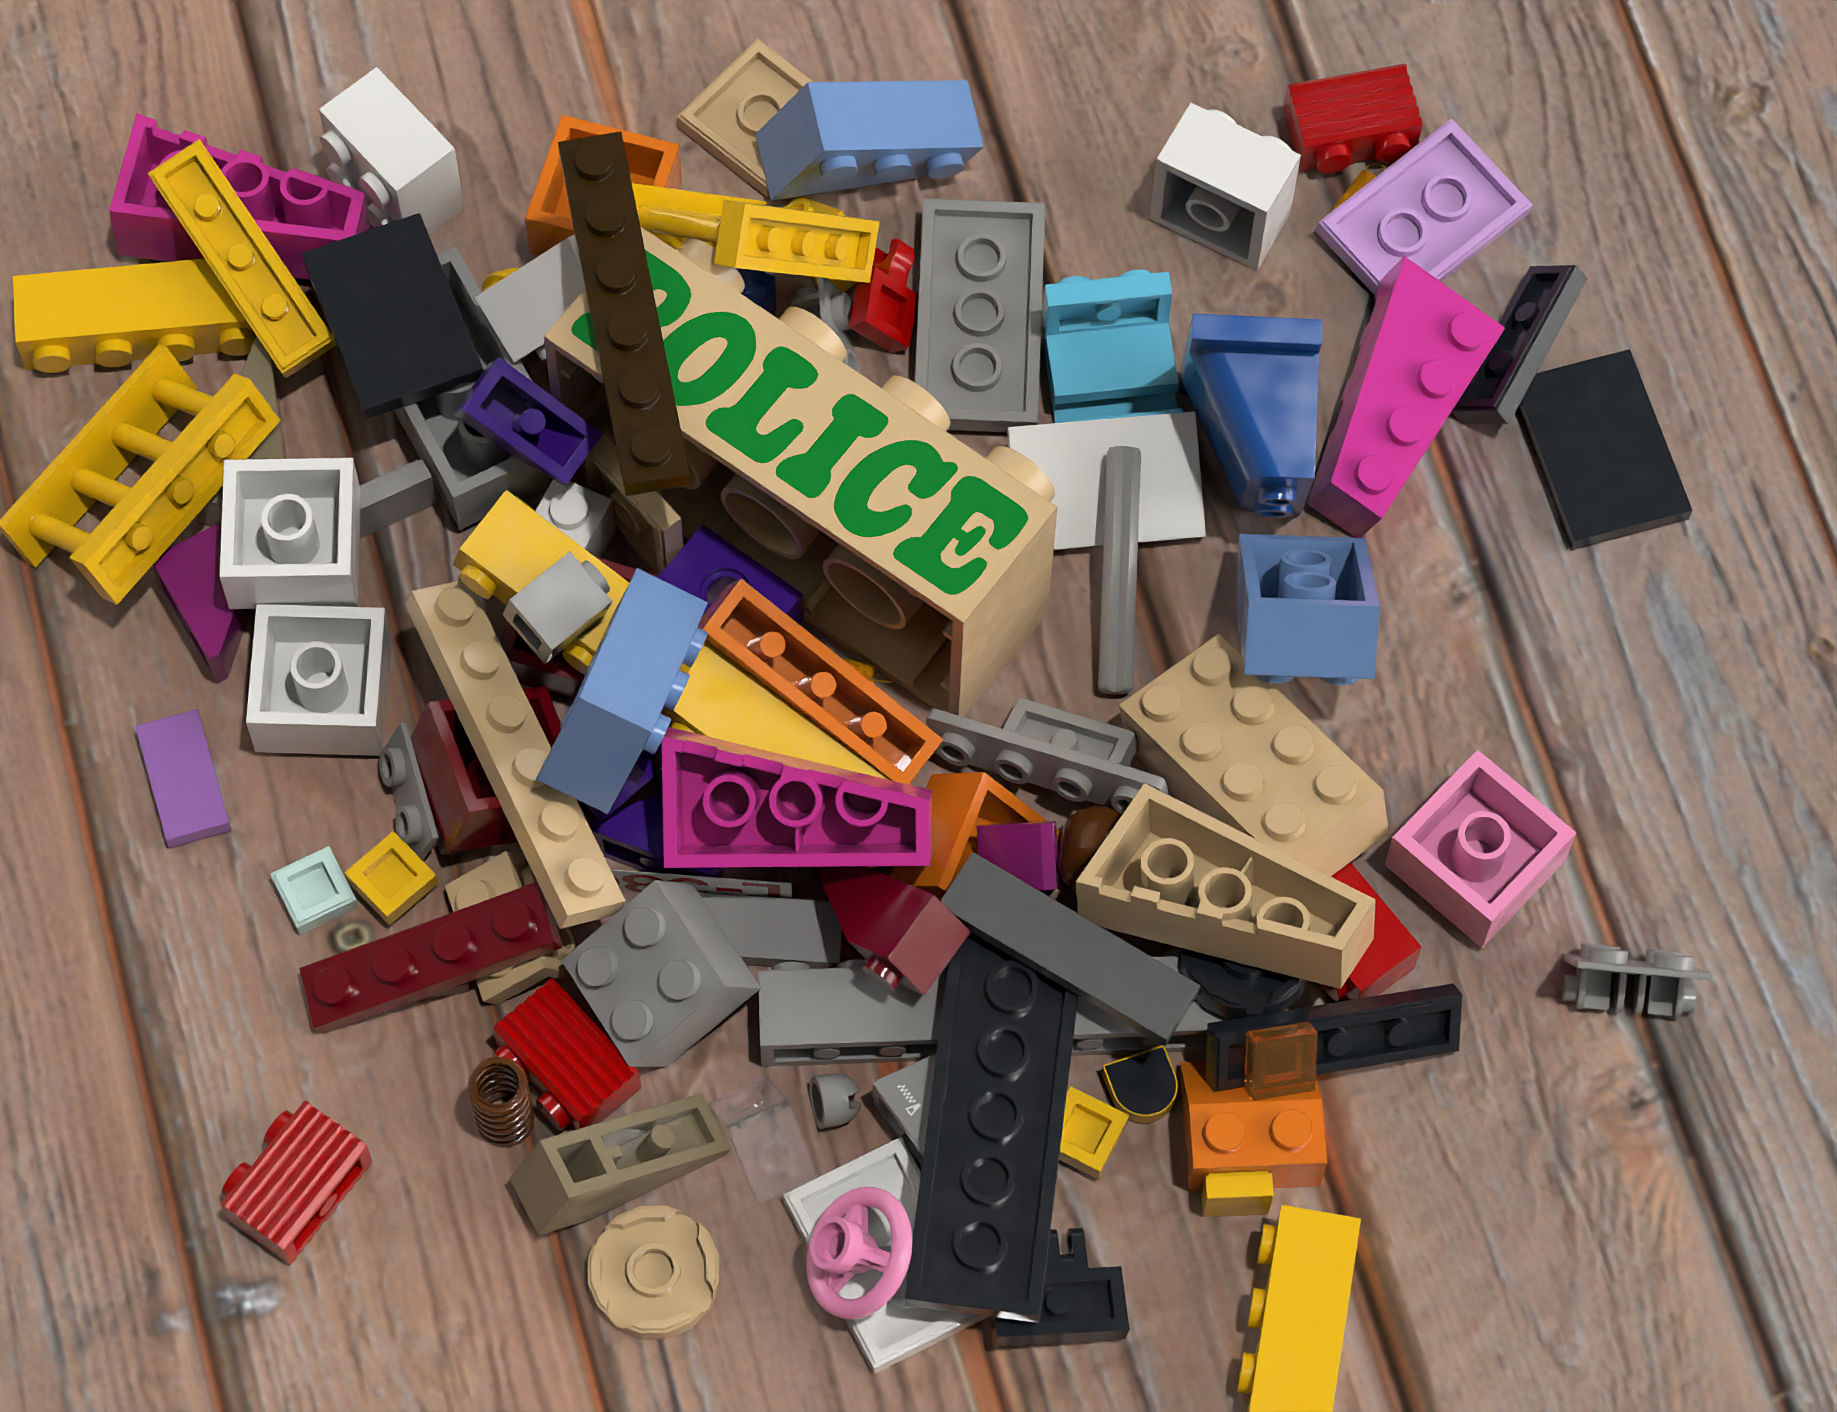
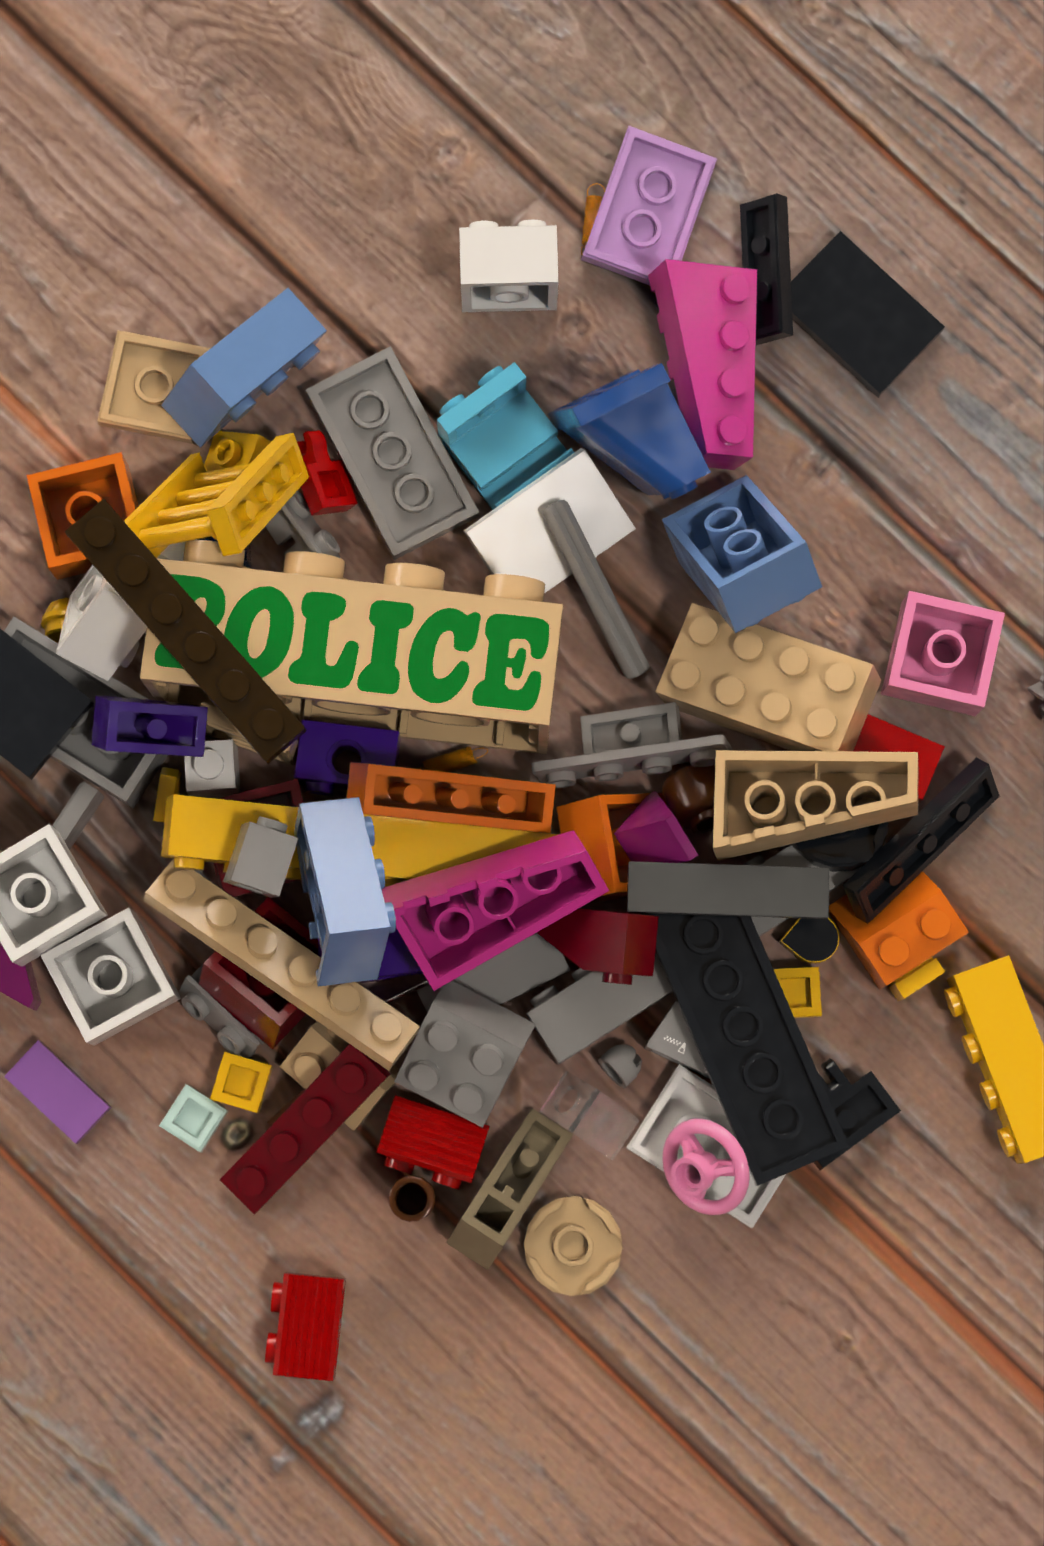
camera: 30 degrees left, 15 degrees up
(1280, 1061) = (902, 882): clear orange tile -> none
(1352, 118) = (562, 163): red brick -> none

